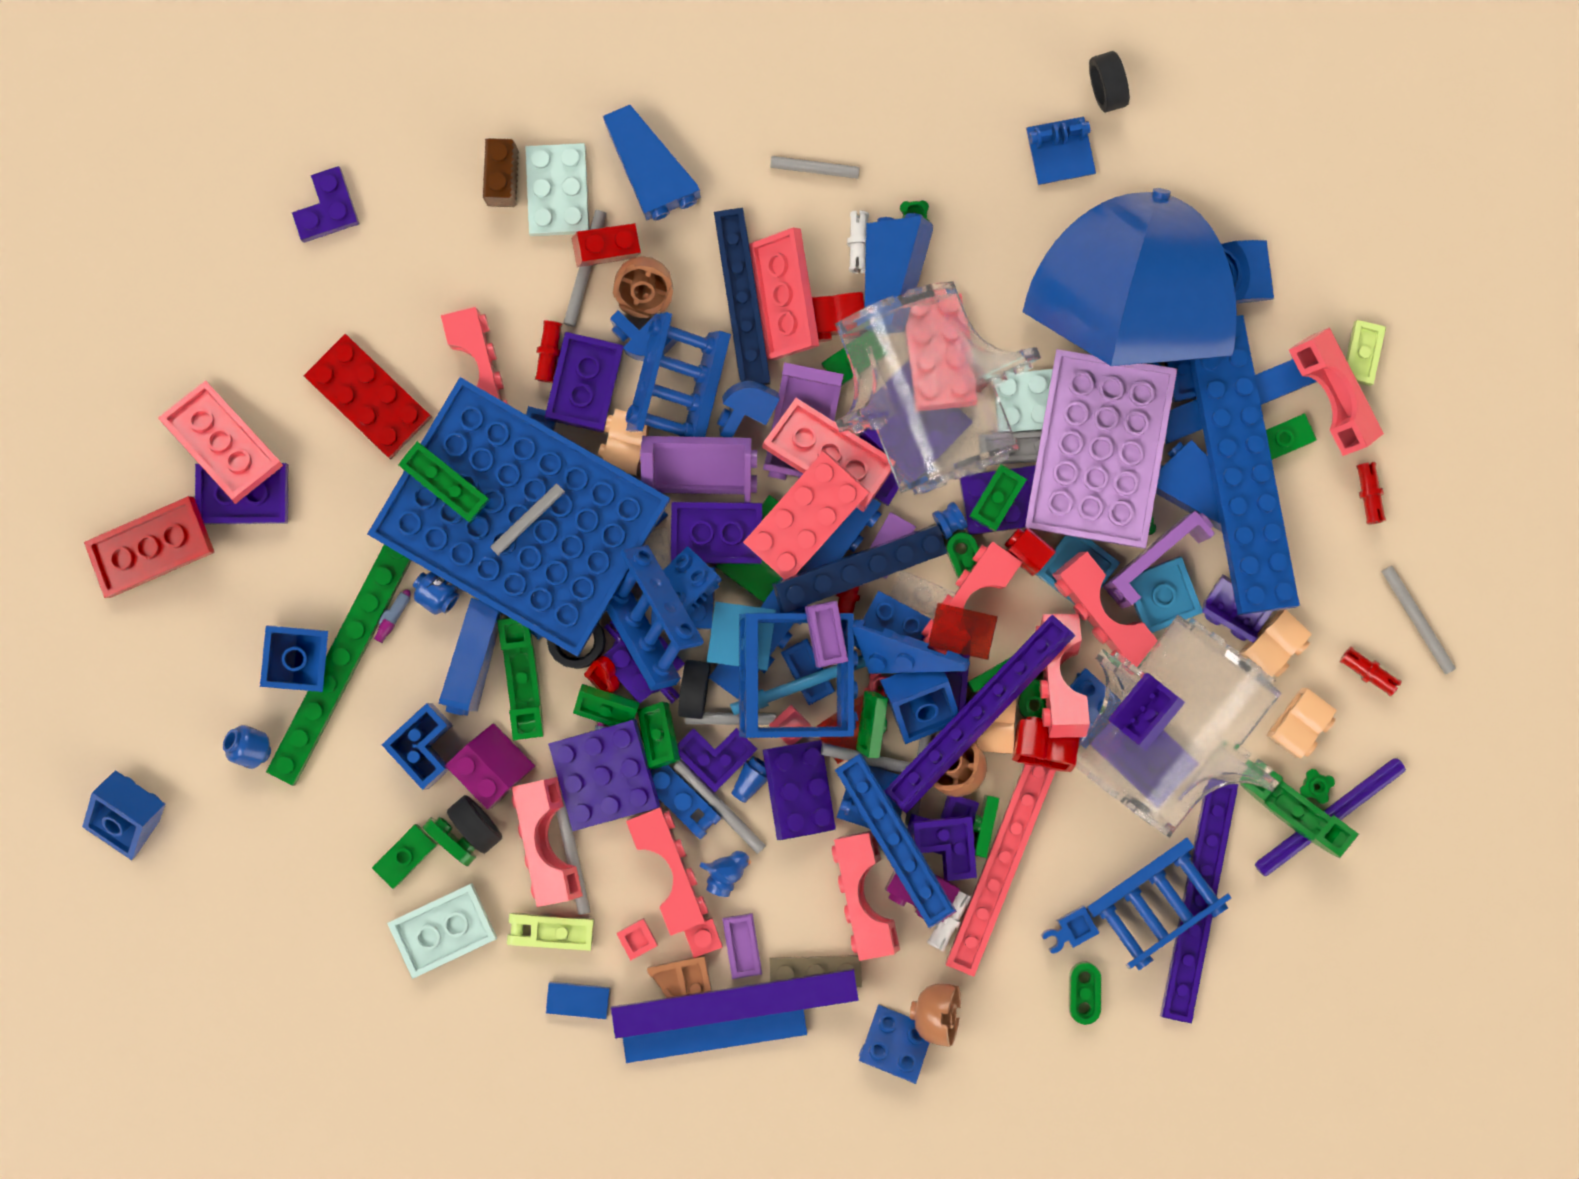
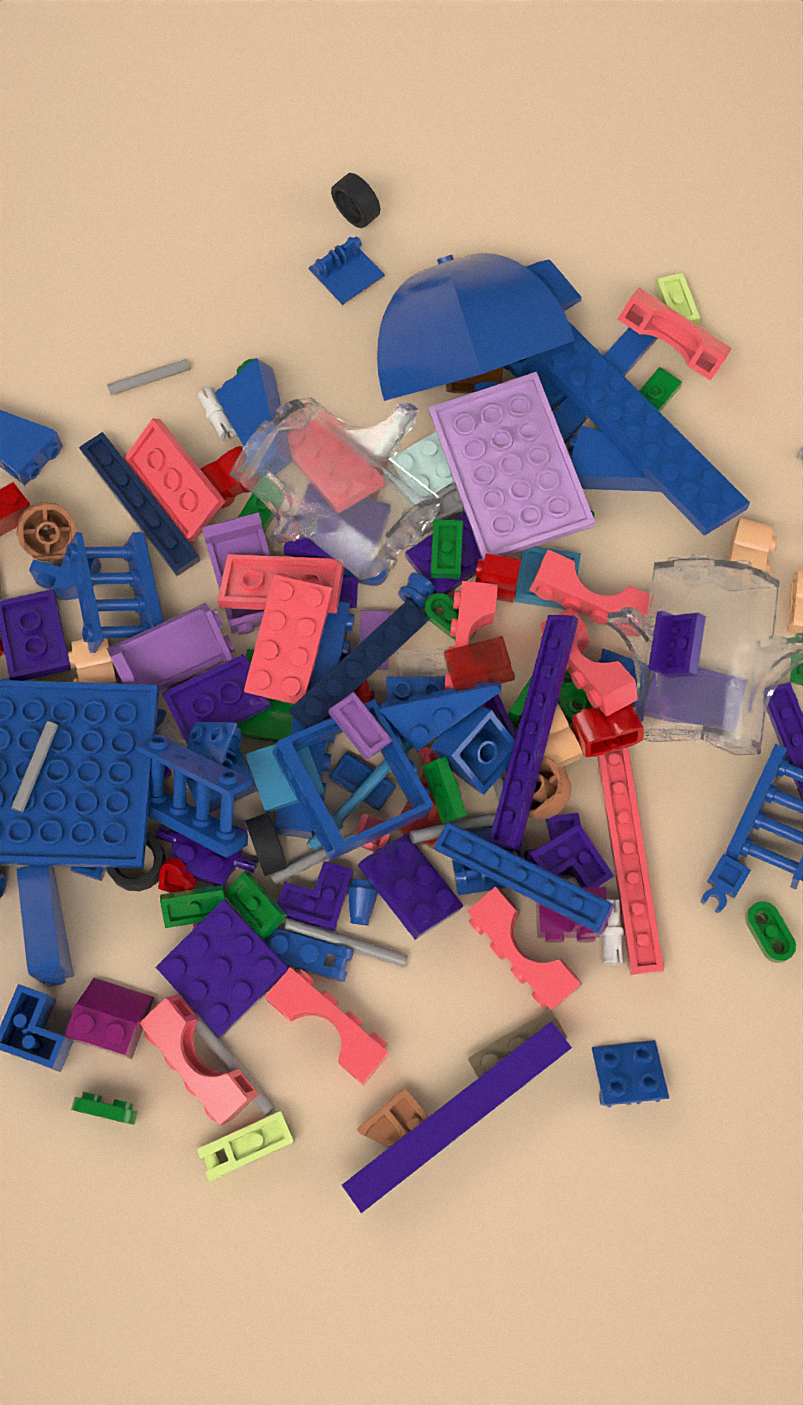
camera: 25 degrees left, 15 degrees down
(405, 856) = (67, 1150): green plate -> none
(442, 930) = (138, 1203): light aqua plate -> none
(474, 824) = (120, 1077): black tyre -> none
(521, 679) = (100, 920): green slope -> none
(577, 1000) = (306, 1200): blue tile -> none
(637, 939) = (333, 1107): coral plate -> none
(703, 938) = (395, 1072): coral plate -> none
(714, 1036) = (454, 1160): blue tile -> none
(725, 873) = (383, 998): blue animal -> none
(742, 946) = (436, 1061): medium lavender tile -> none
(746, 399) = (186, 576): blue brick -> none
(936, 1013) = (649, 1021): nougat cylinder -> none
(984, 824) = (594, 827): green plate -> none
(1118, 586) = (595, 566): medium lavender panel -> none
(1165, 594) = (630, 559): dark azure tile -> none
(1221, 609) = (688, 540): dark purple bracket -> none
(1371, 493) = (750, 400): red pin -> none

